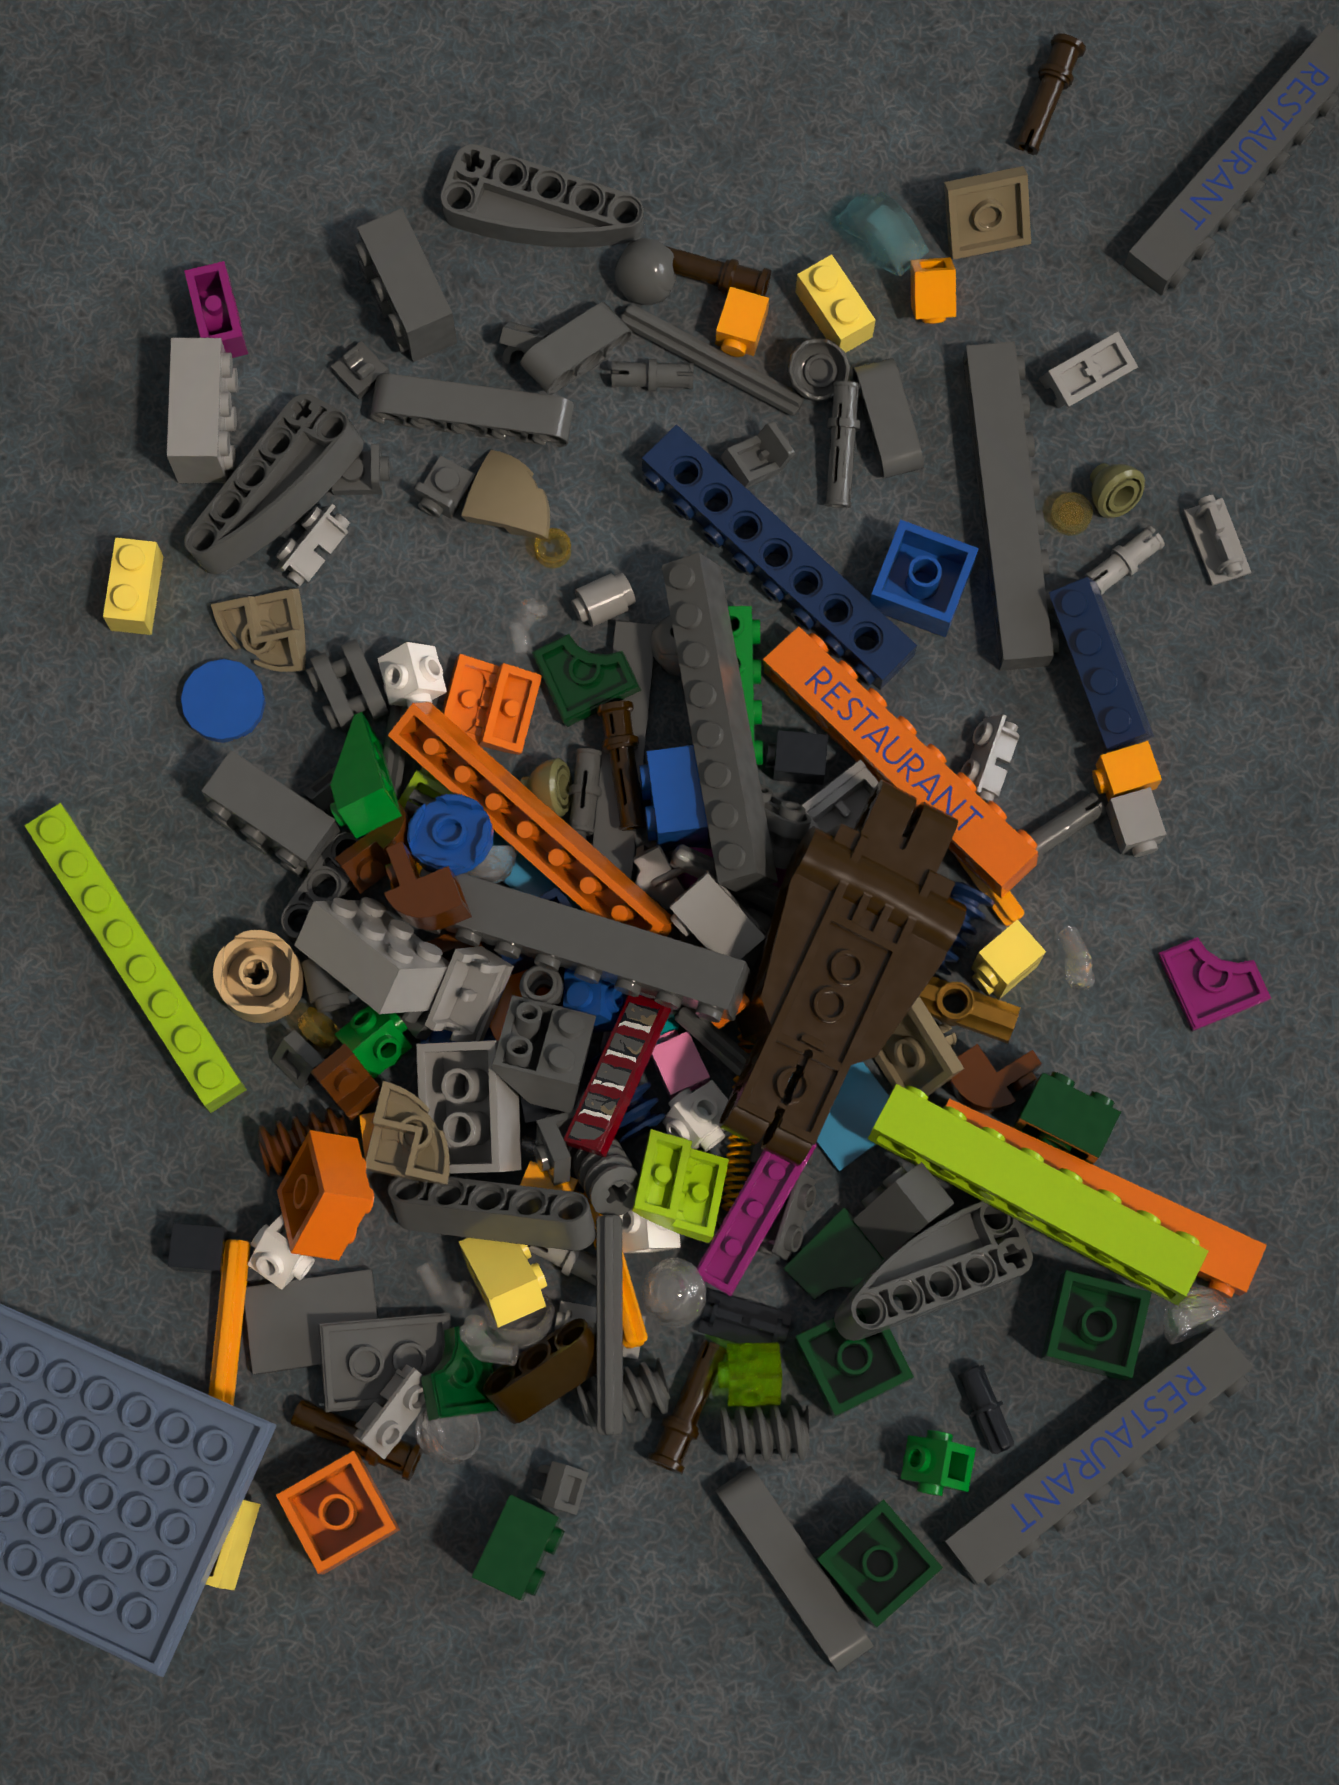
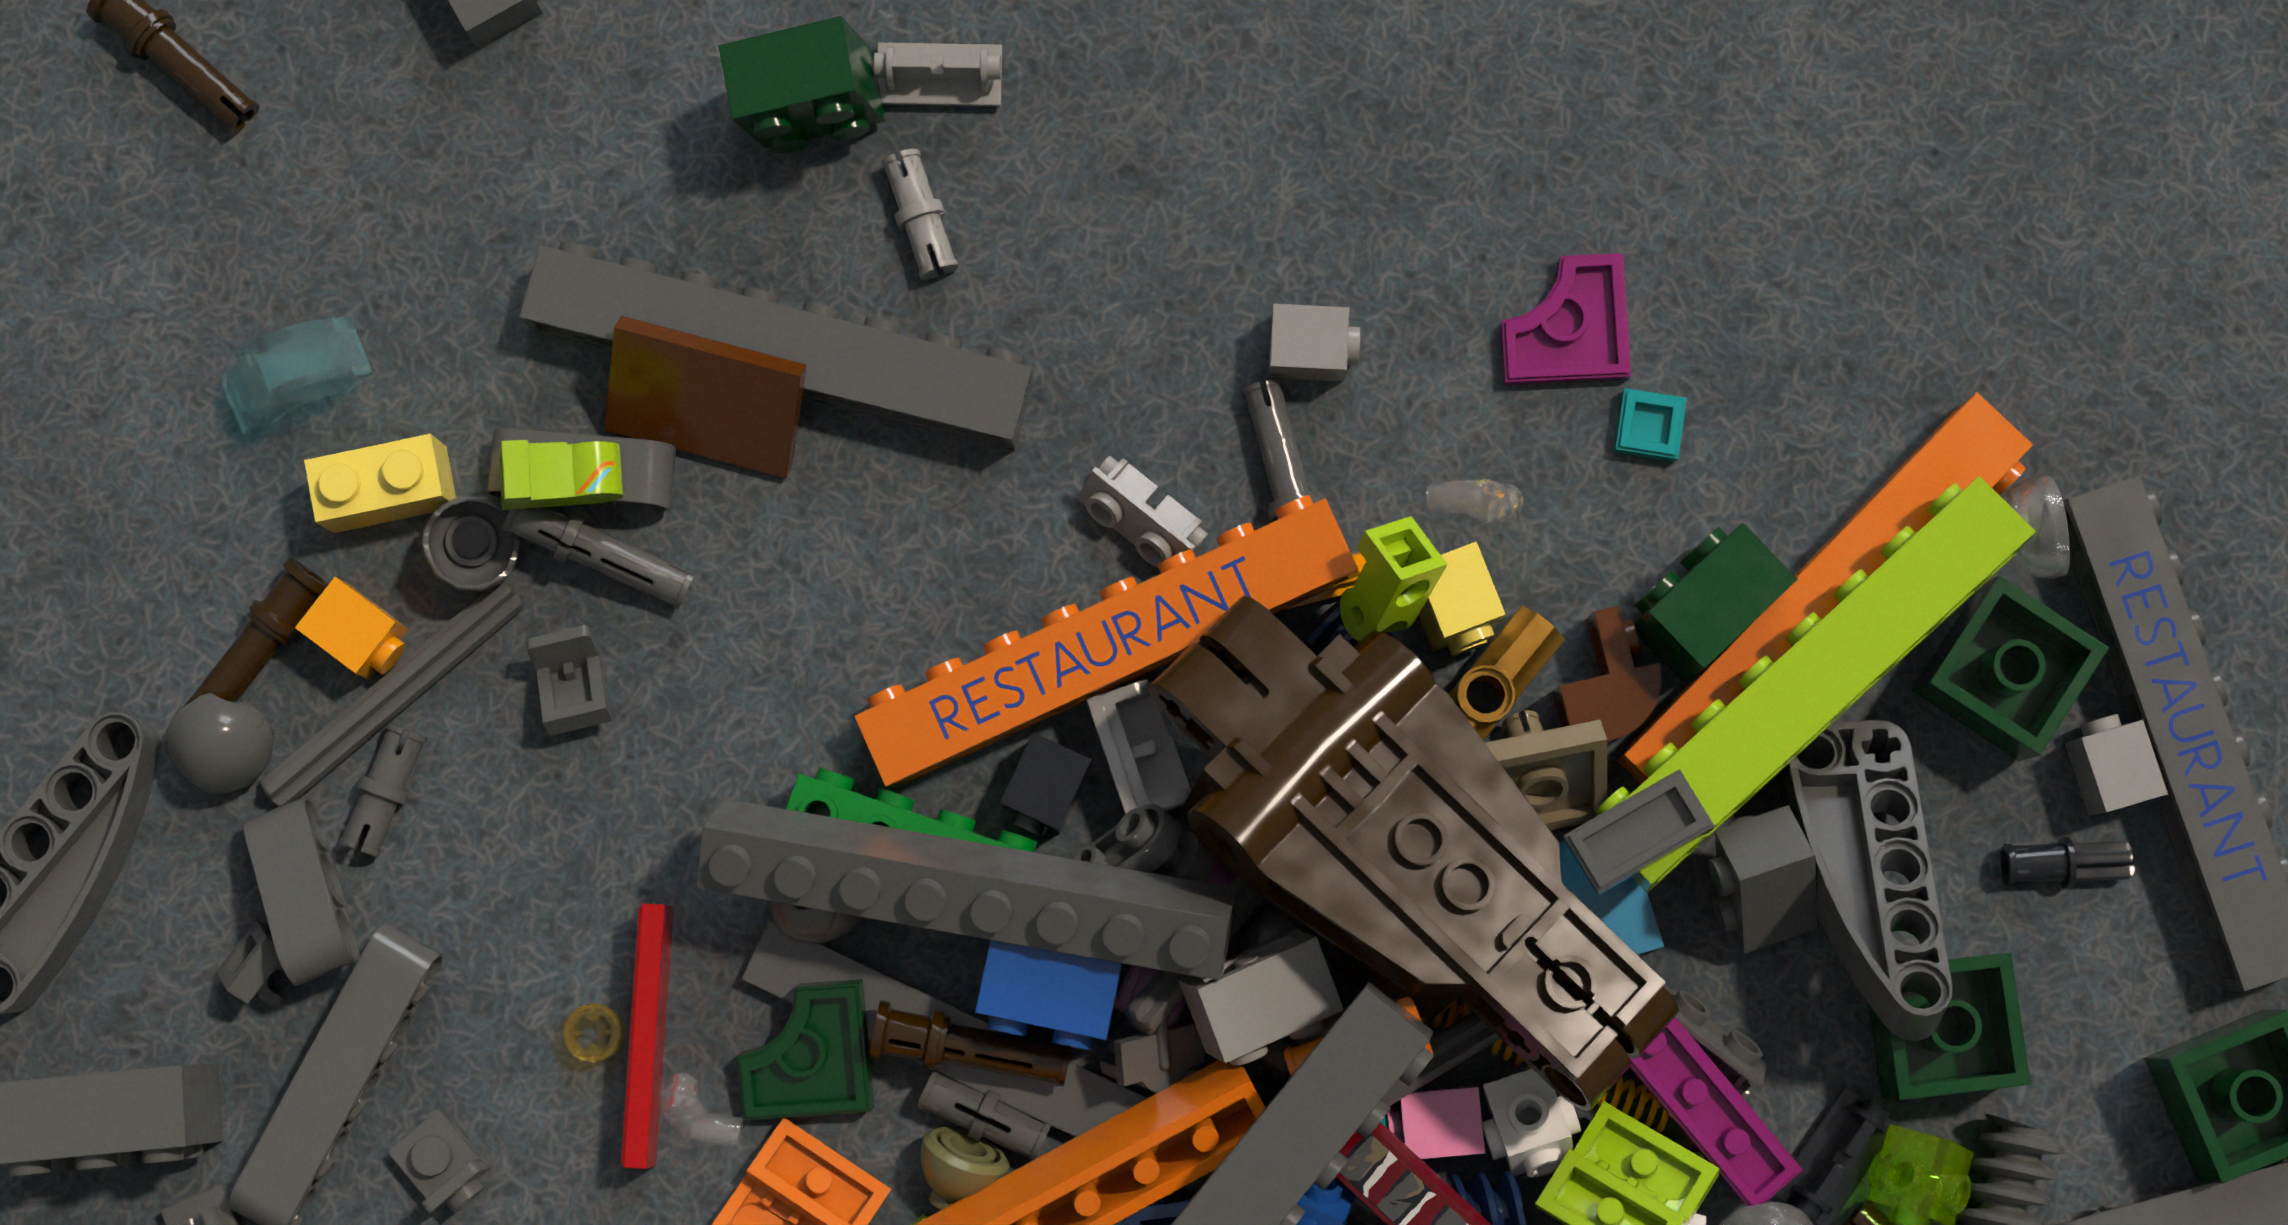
camera: 70 degrees left, 5 degrees up
(508, 498) = (492, 1073): dark tan brick -> none
(562, 577) = (647, 1036): none -> red tile
(603, 599) = (702, 986): light grey brick -> none
(680, 454) = (521, 793): dark blue brick -> none
(834, 1258) = (1788, 996): dark green tile -> none
(879, 400) = (559, 473): none -> lime leg
(901, 1108) = (1638, 832): none -> dark grey tile
(923, 578) = (846, 508): blue brick -> none
(929, 1459) = (2129, 960): green brick -> none
(933, 289) = (412, 332): light orange brick -> none
(960, 470) = (704, 396): none -> reddish brown tile
(988, 212) = (325, 209): dark tan tile -> none
(1003, 907) = (1394, 580): none -> lime leg
(1060, 1417) = (2115, 765): none -> light grey brick
(1071, 513) = (822, 262): clear yellow tile -> none
(1089, 371) = (622, 156): light grey hinge -> none
(1101, 664) = (1069, 304): dark blue brick -> none
(1116, 489) = (810, 186): olive brick -> none
(1126, 771) = (1234, 328): light orange brick -> none
(1167, 1053) = (1650, 425): none -> teal tile
(1174, 457) = (802, 85): none -> dark green brick

